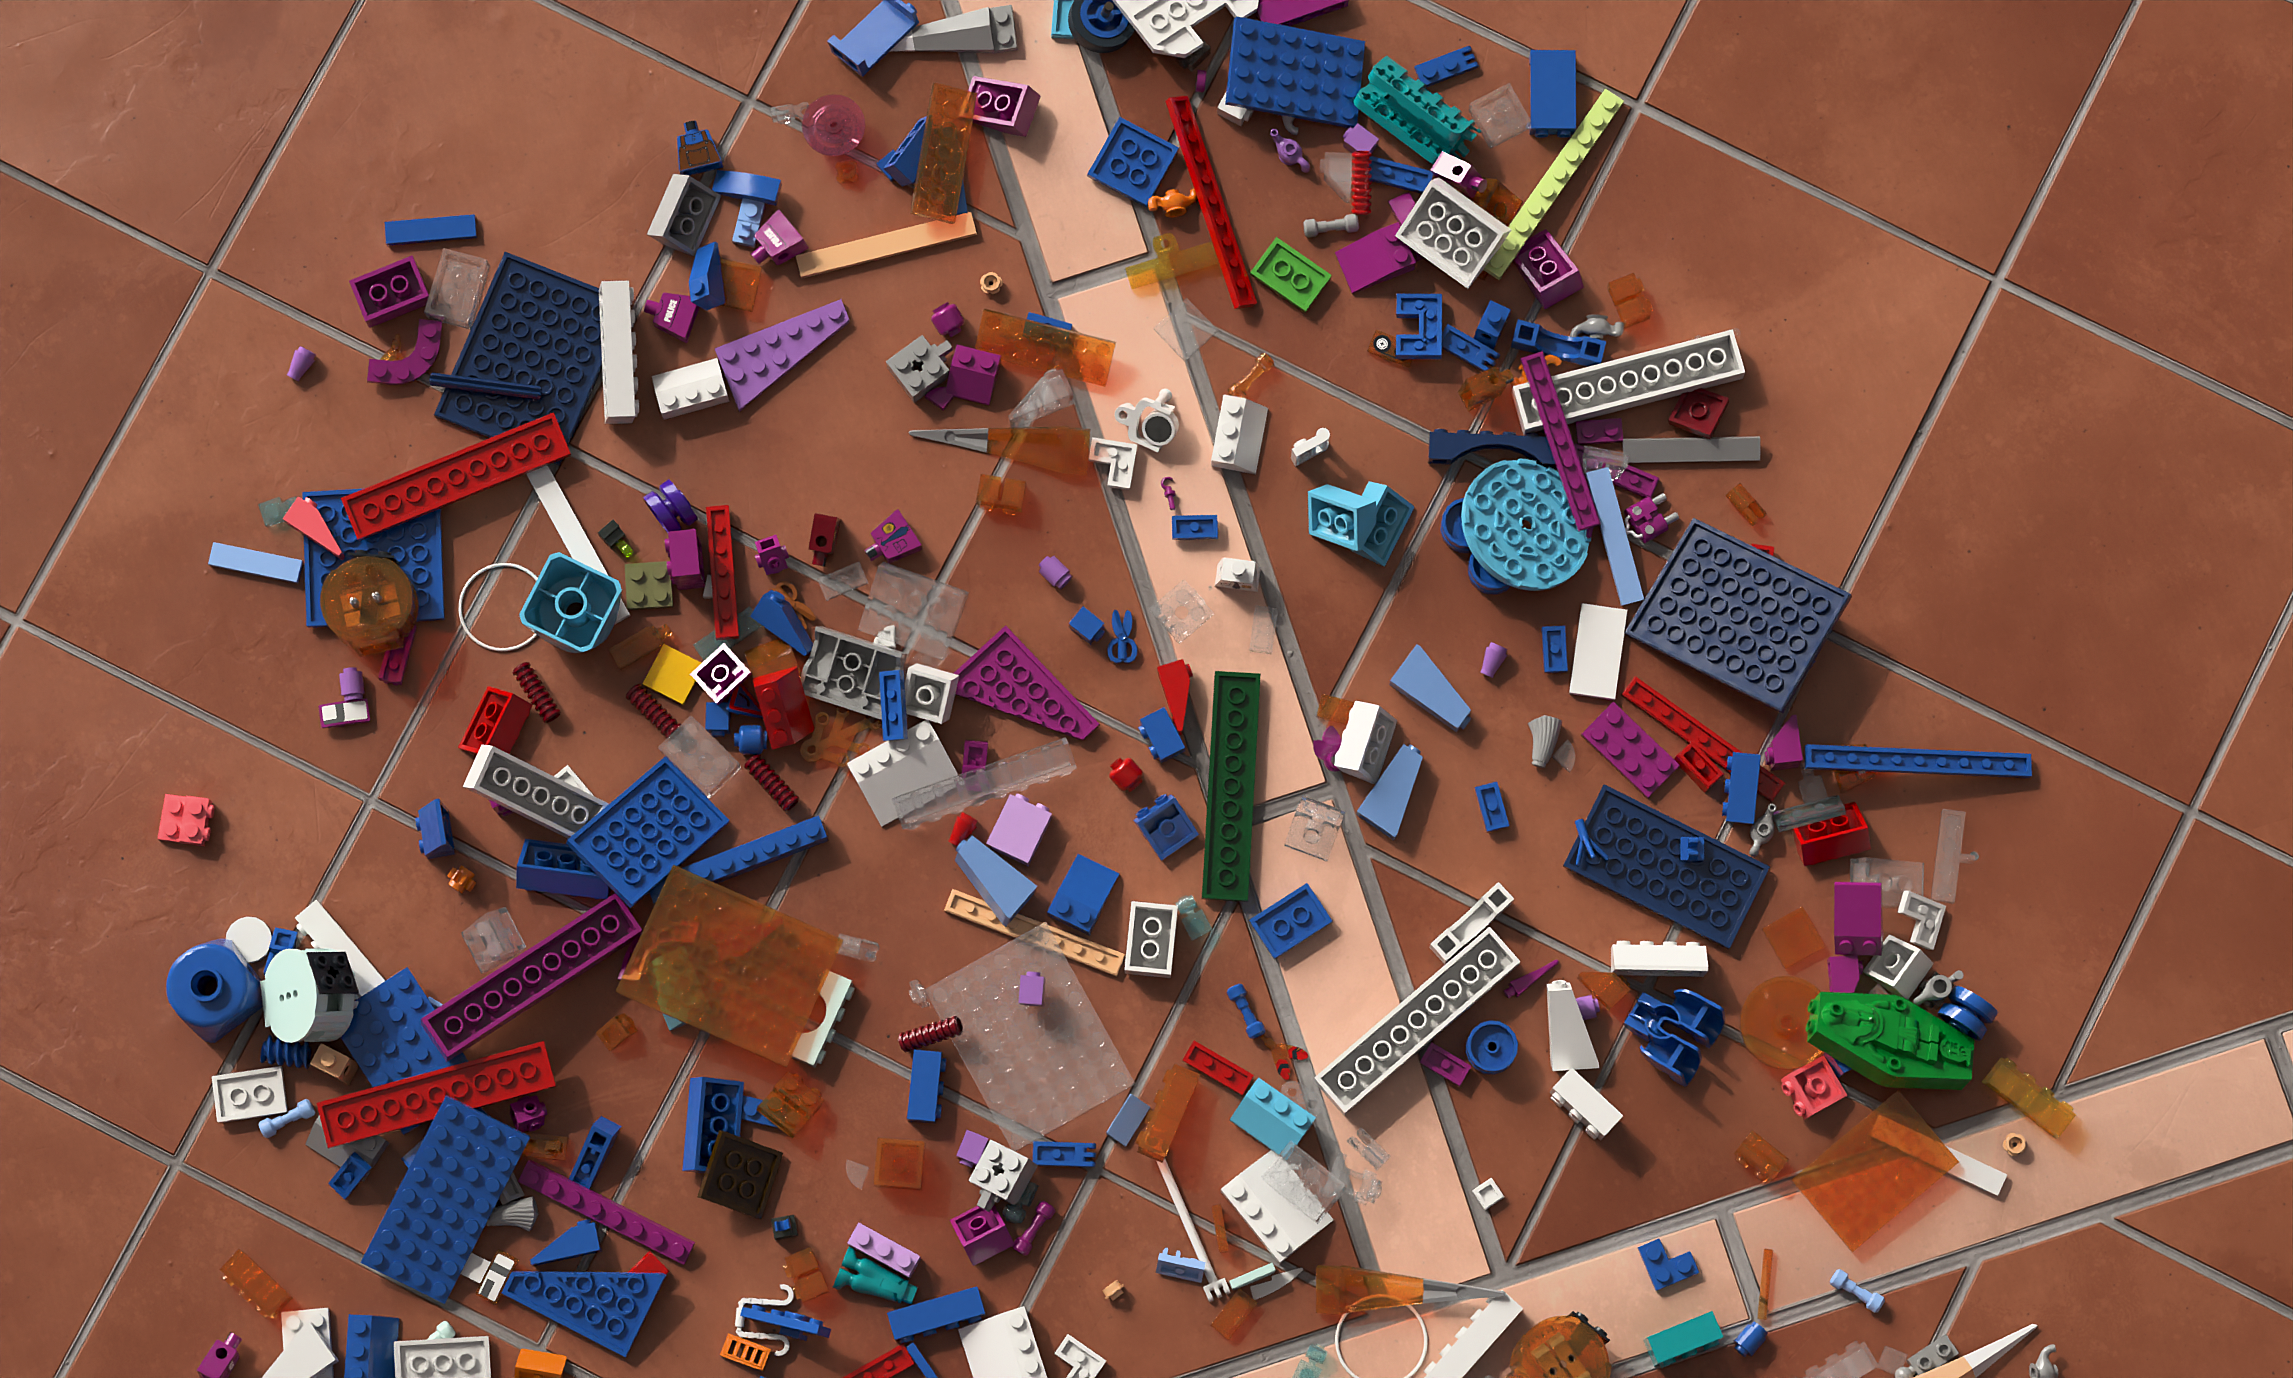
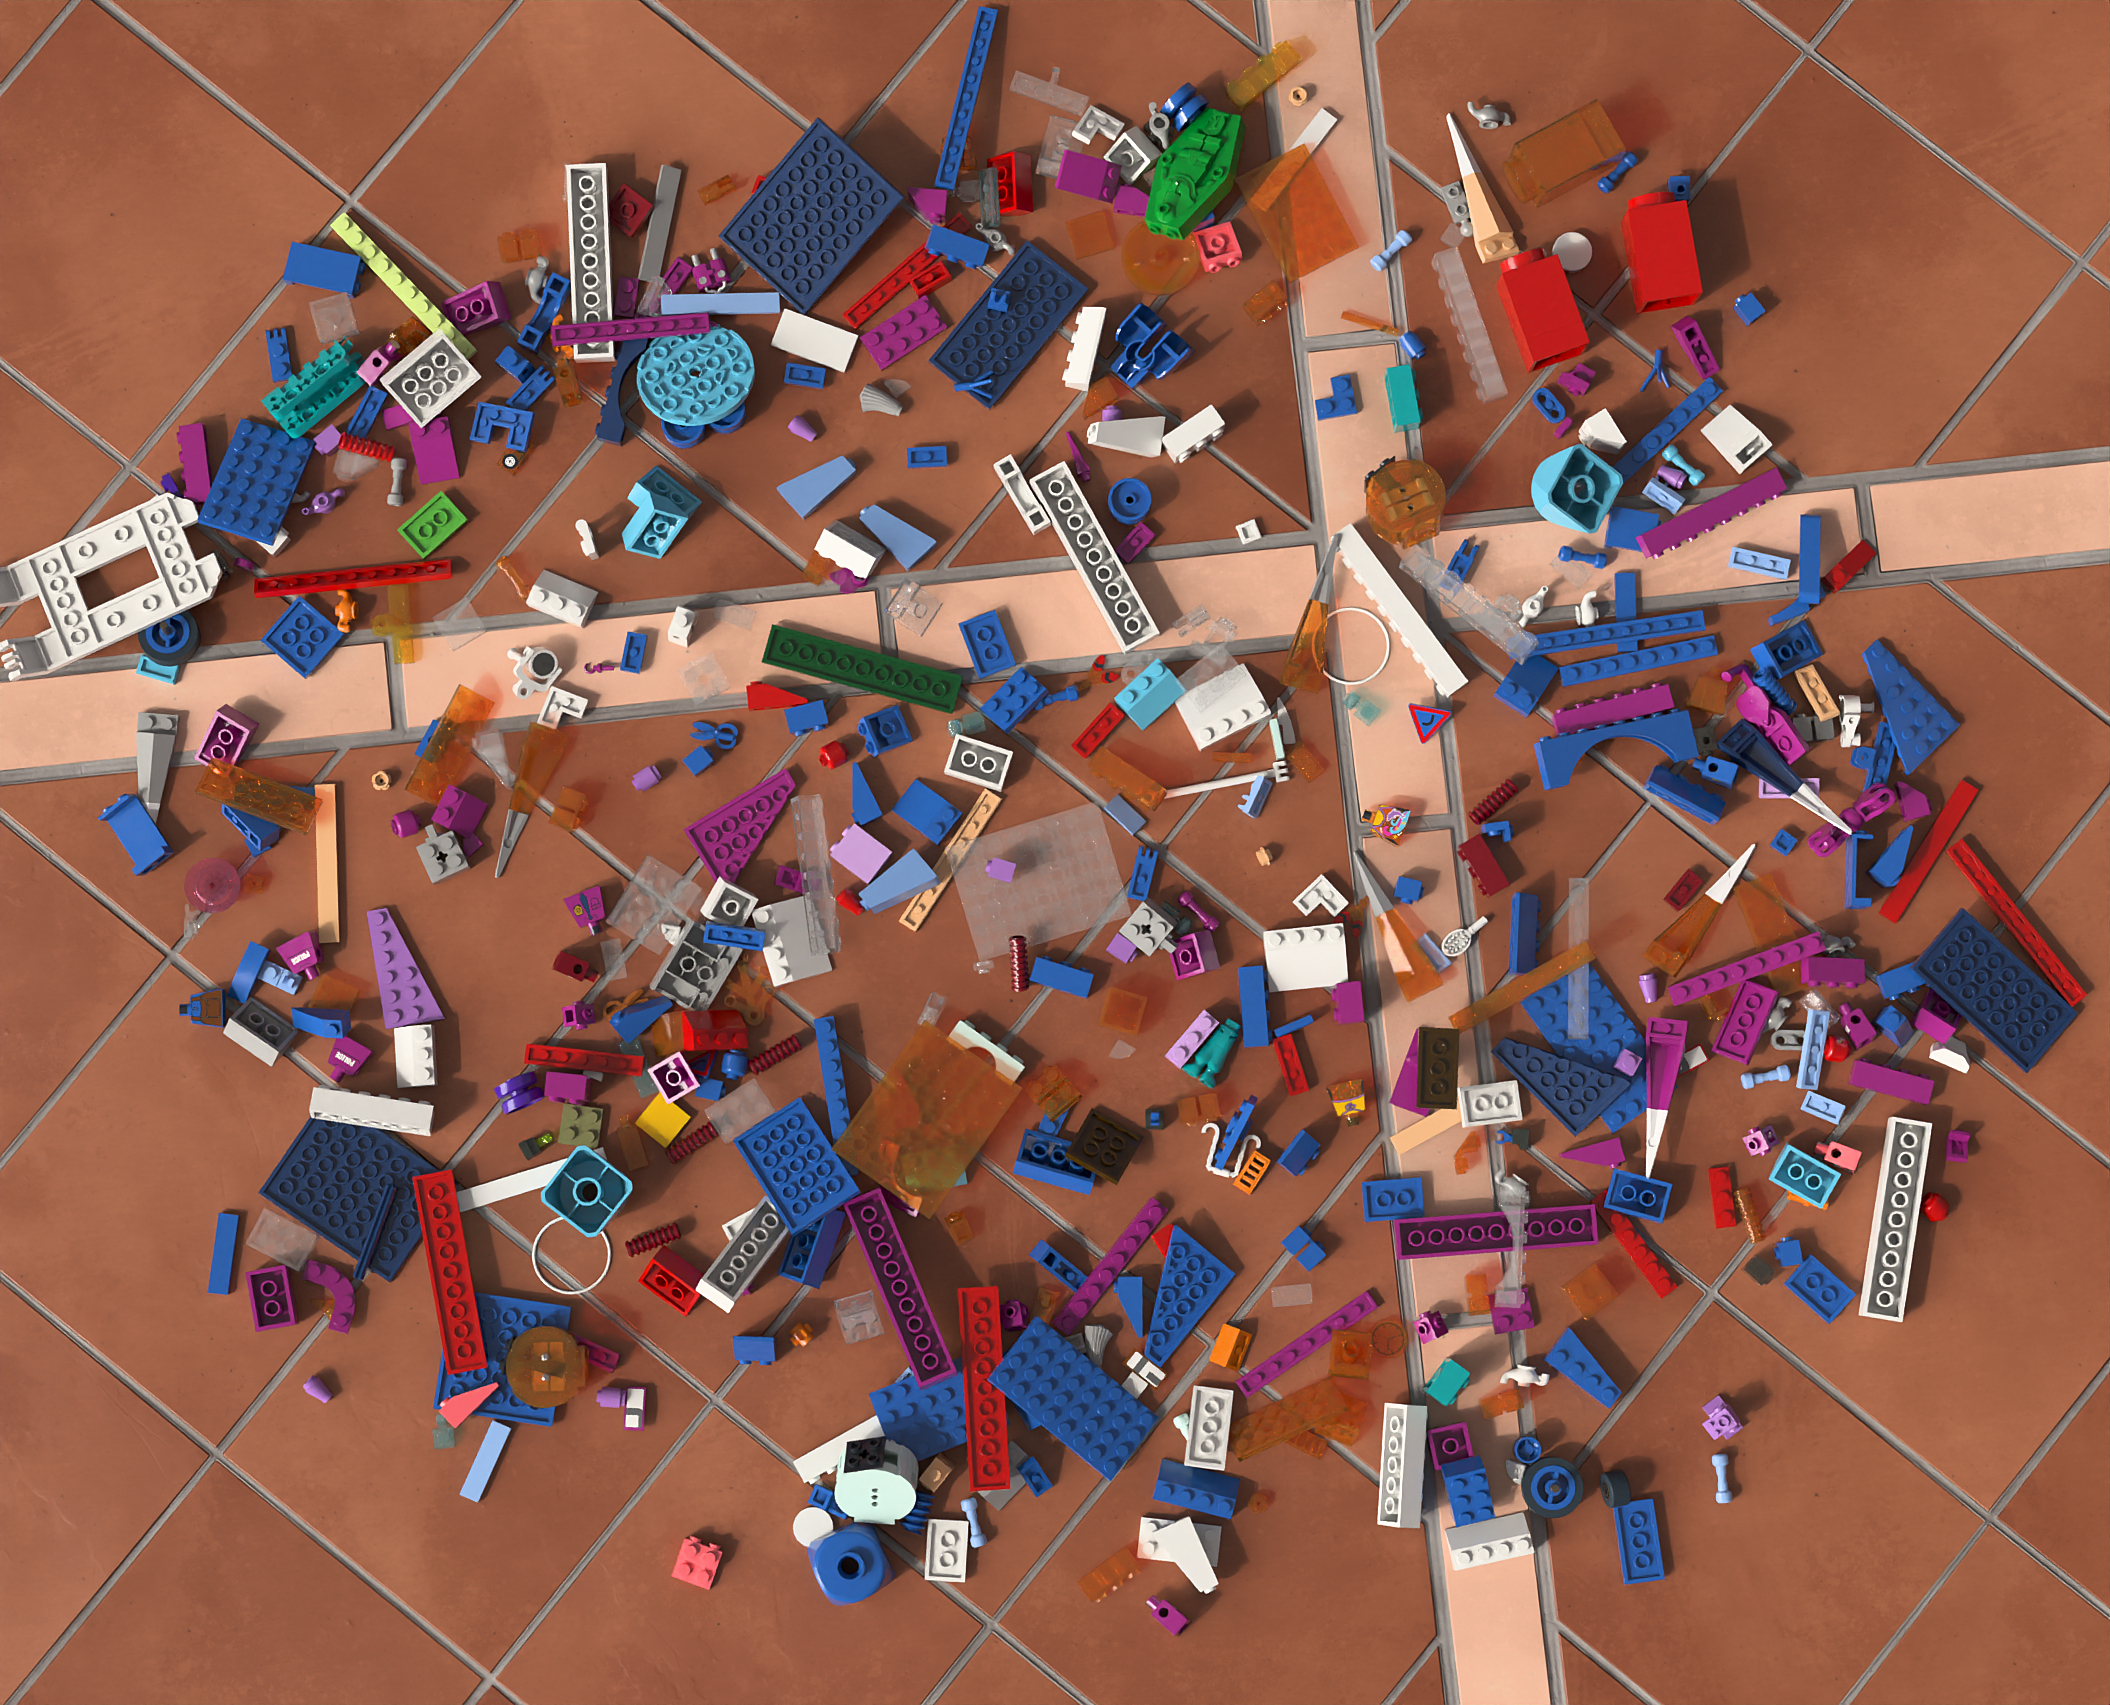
camera: 80 degrees left, 5 degrees up
(1078, 820) = (863, 802): none -> blue slope
(1232, 965) = (1014, 700): none -> blue plate

